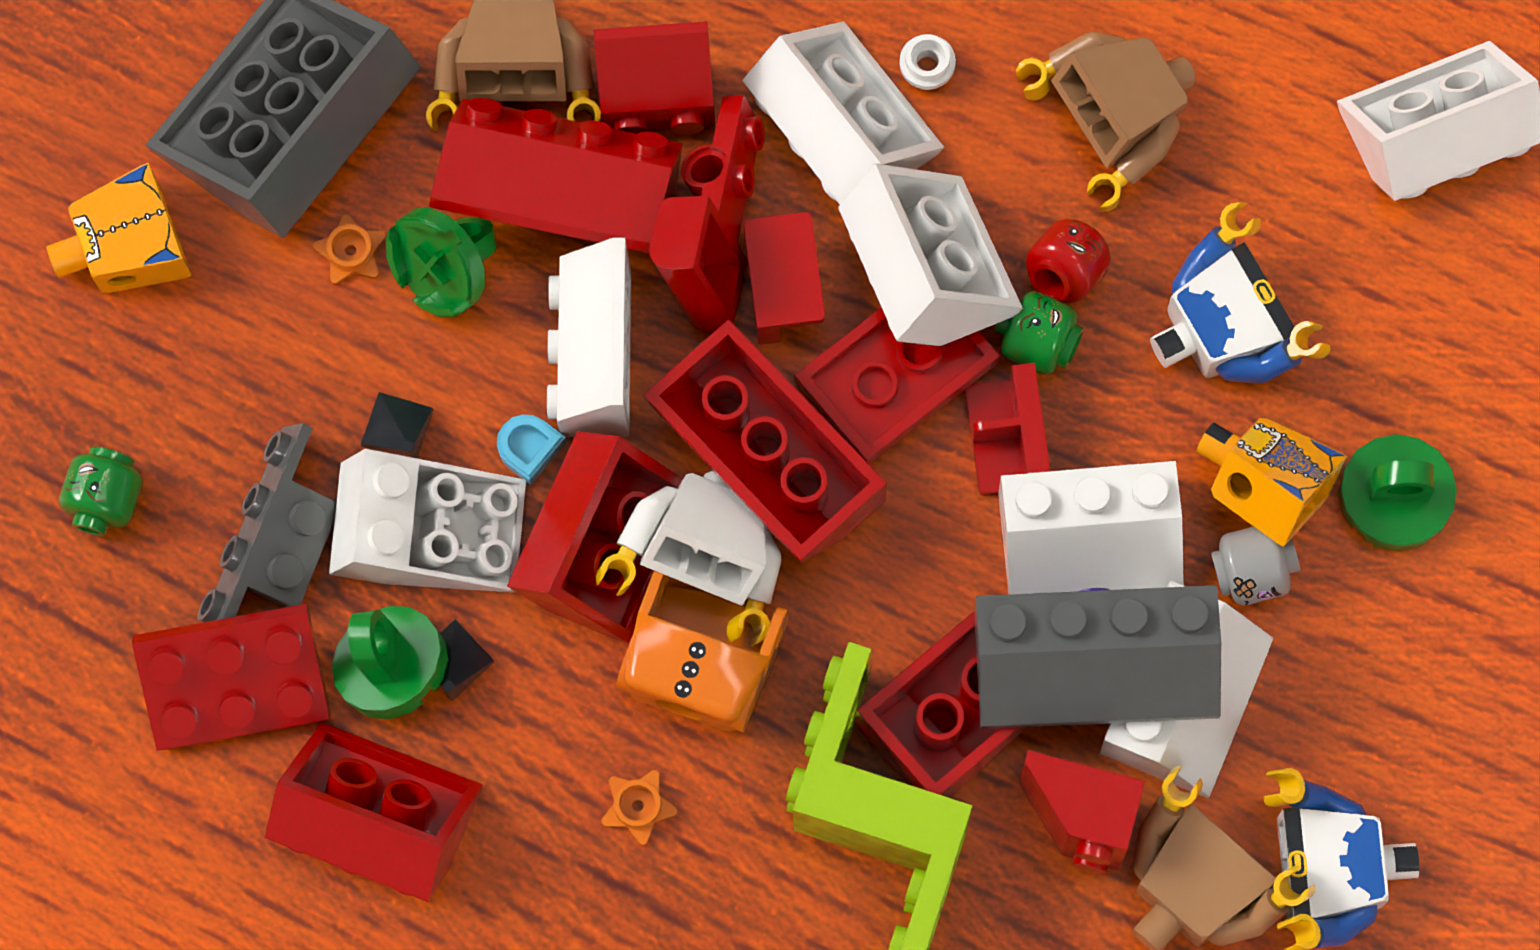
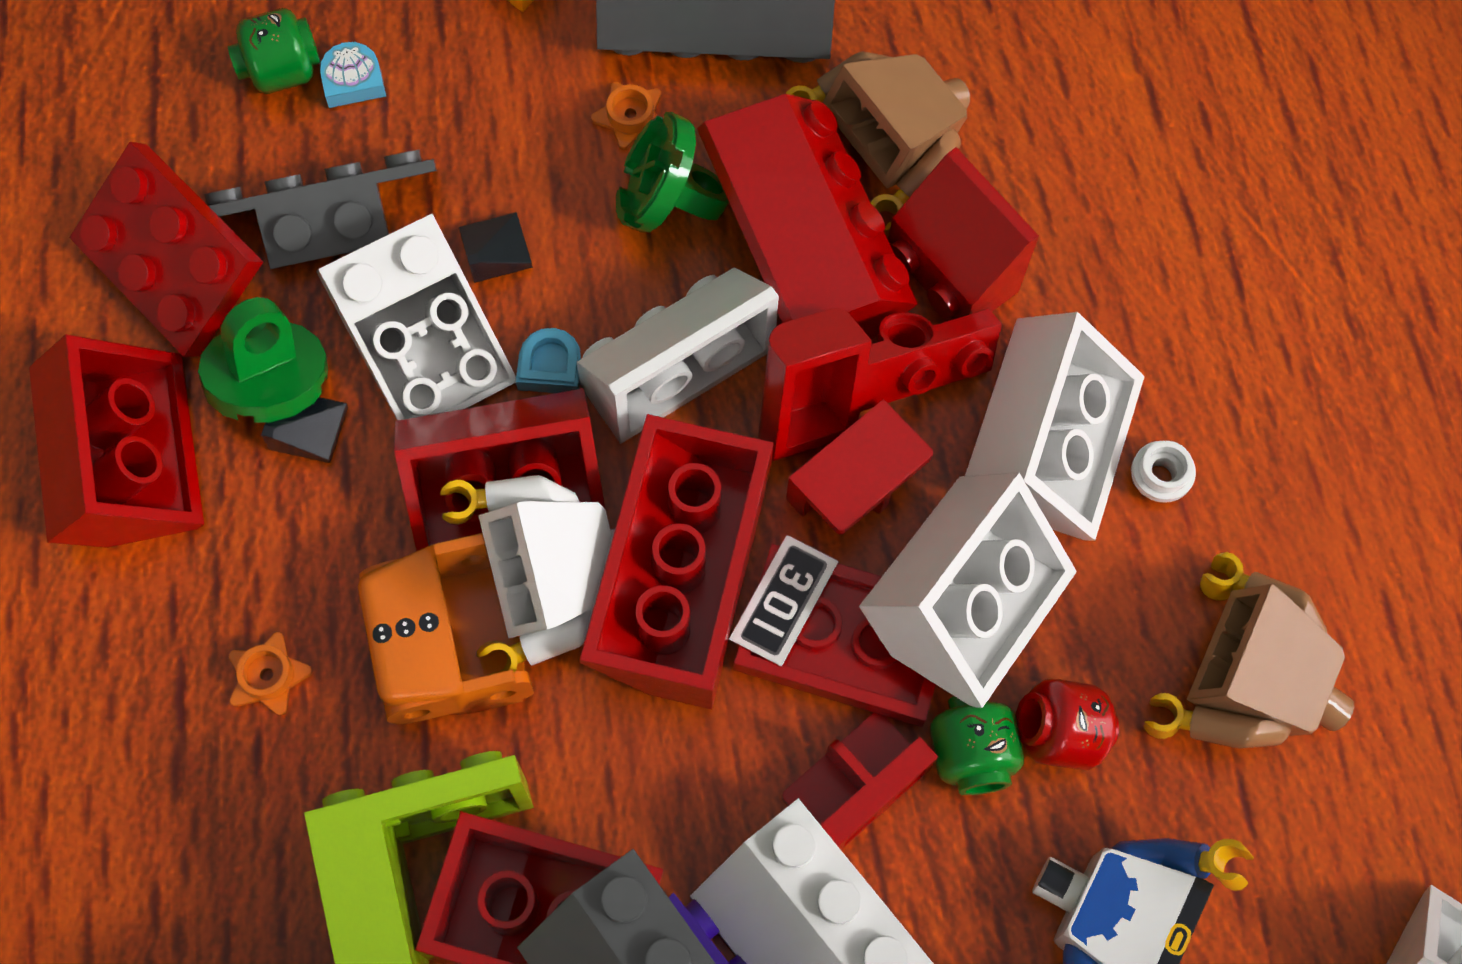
camera: 50 degrees right, 5 degrees down
(159, 445) = (351, 74): none -> tile
(844, 393) = (783, 600): none -> sticker

